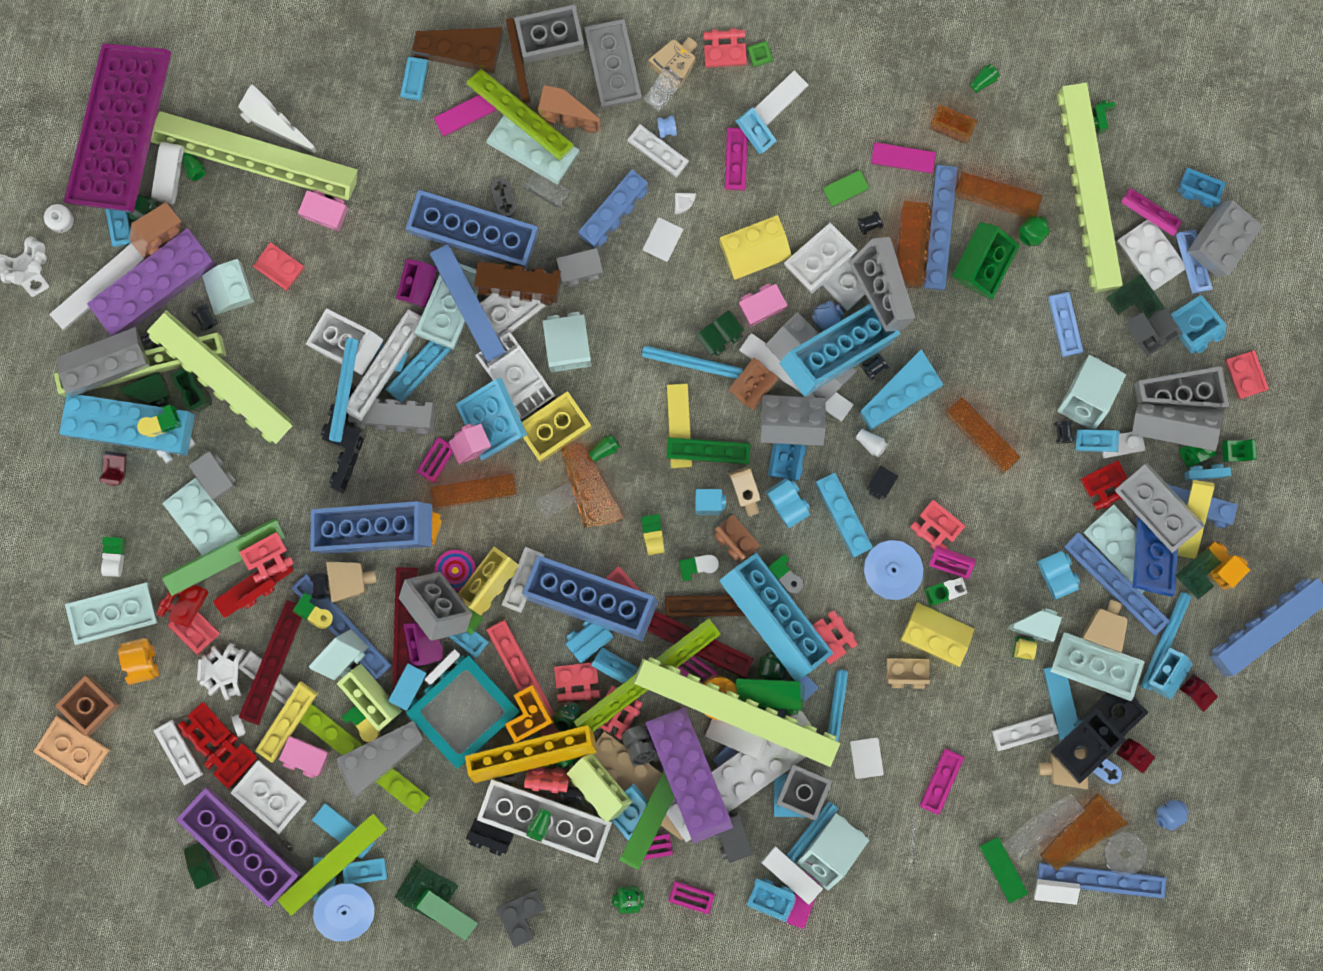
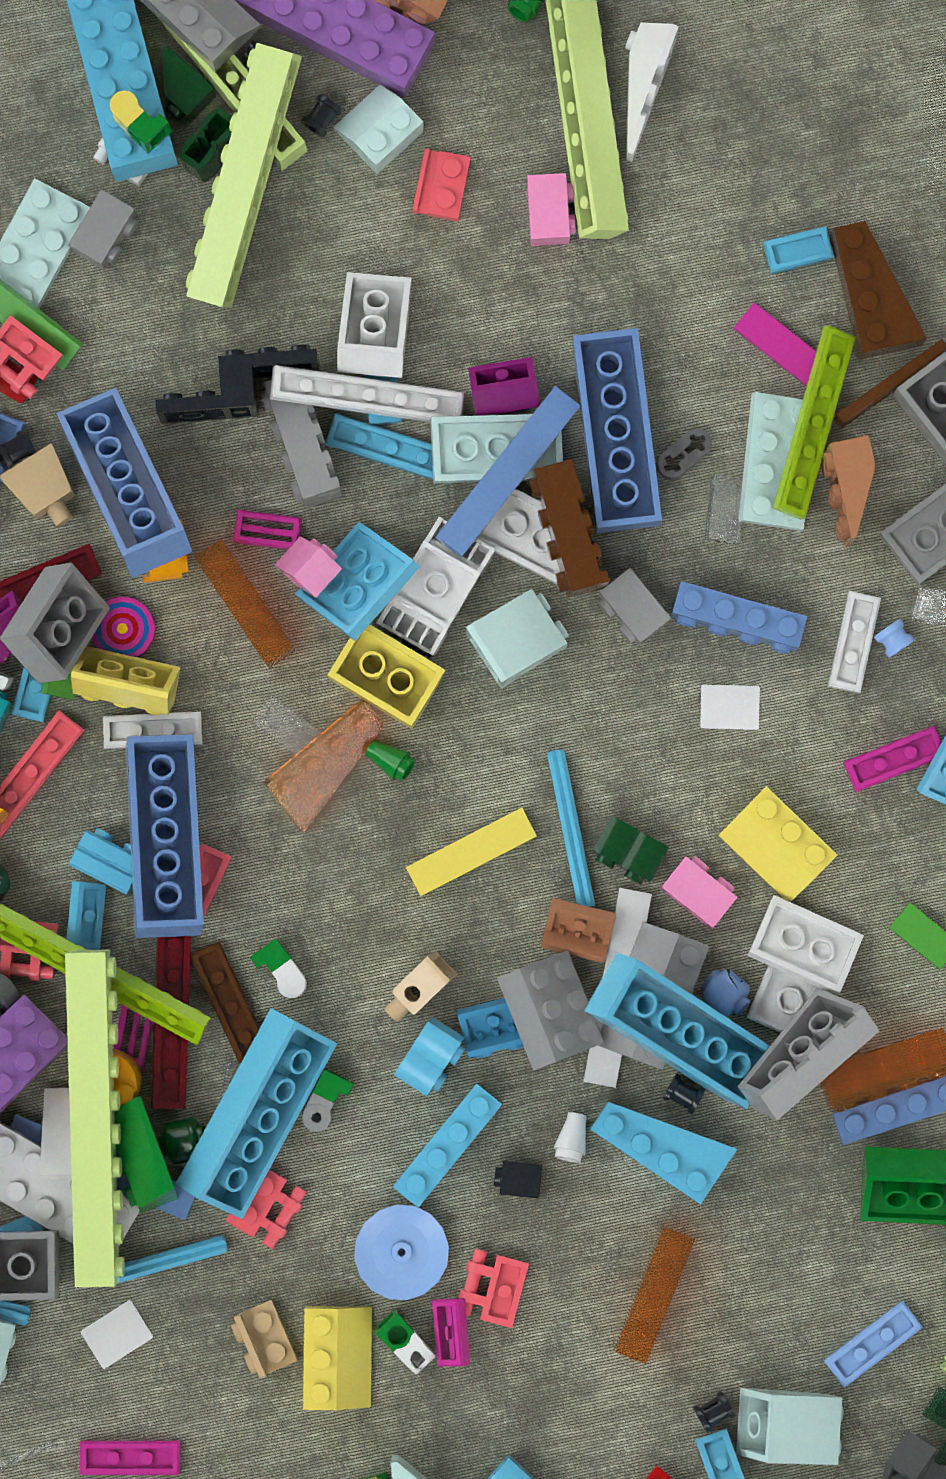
camera: 65 degrees right, 0 degrees up
(113, 468) = (52, 89): dark red bracket -> none
(343, 389) = (300, 354): medium azure axle -> none
(576, 675) = (50, 867): coral plate -> none
(653, 534) = (298, 884): leg -> none
(683, 202) = (797, 712): white tile -> none
(708, 451) = (453, 909): green tile -> none
(709, 501) = (376, 943): medium azure brick -> none
(736, 538) = (345, 1005): nougat bracket -> none
(869, 223) = (889, 993): black bush -> none

